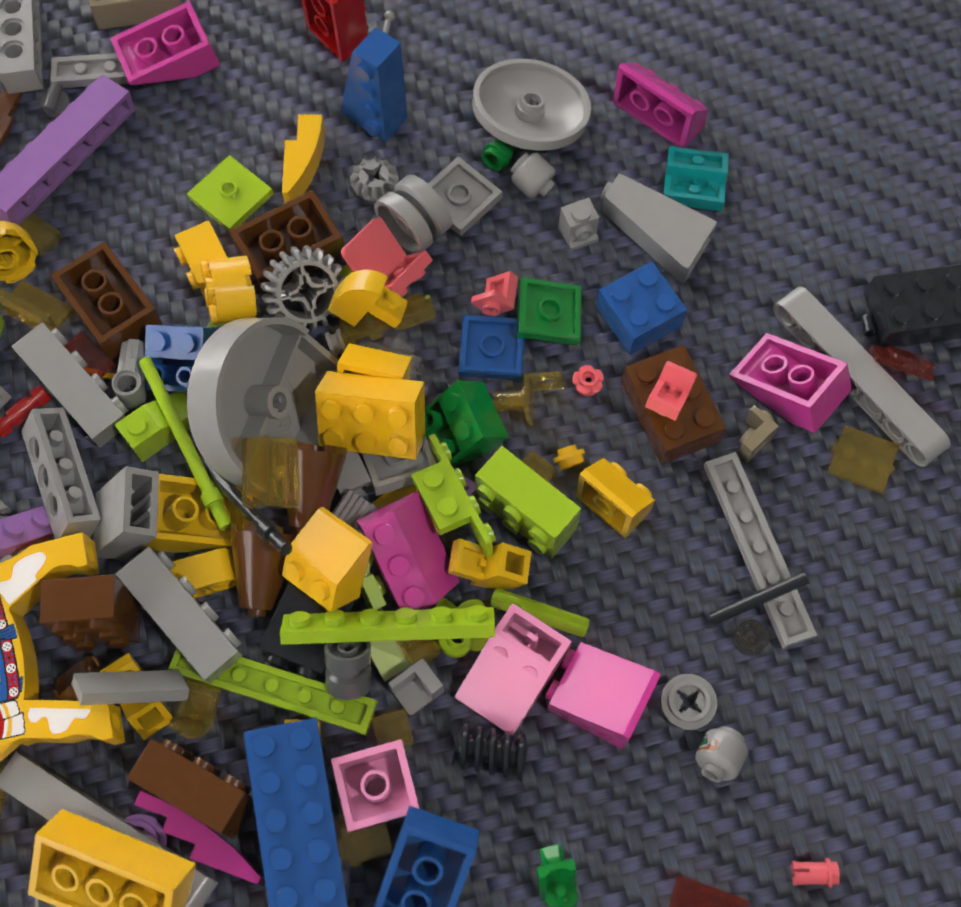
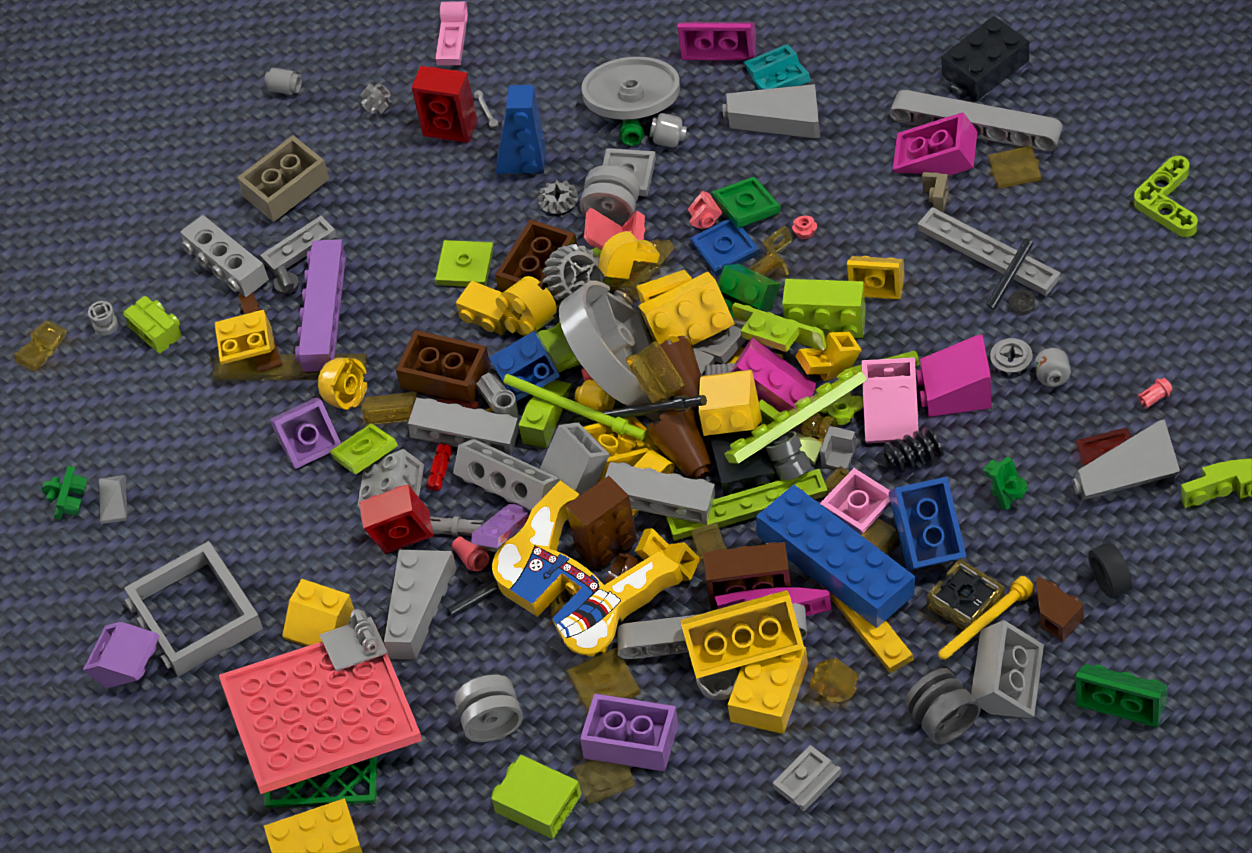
camera: 25 degrees left, 15 degrees down
(129, 687) = (663, 542): light grey tile -> none
(166, 48) = (342, 198): dark pink slope -> none
(303, 156) = (496, 210): yellow slope -> none
(569, 457) = (829, 272): yellow plate -> none
(579, 224) = (723, 140): light grey brick -> none
(641, 308) = (805, 164): blue brick -> none
(671, 390) = (866, 187): coral bracket -> none
(697, 423) = (870, 205): reddish brown brick -> none
(904, 361) = (998, 93): clear red piece -> none

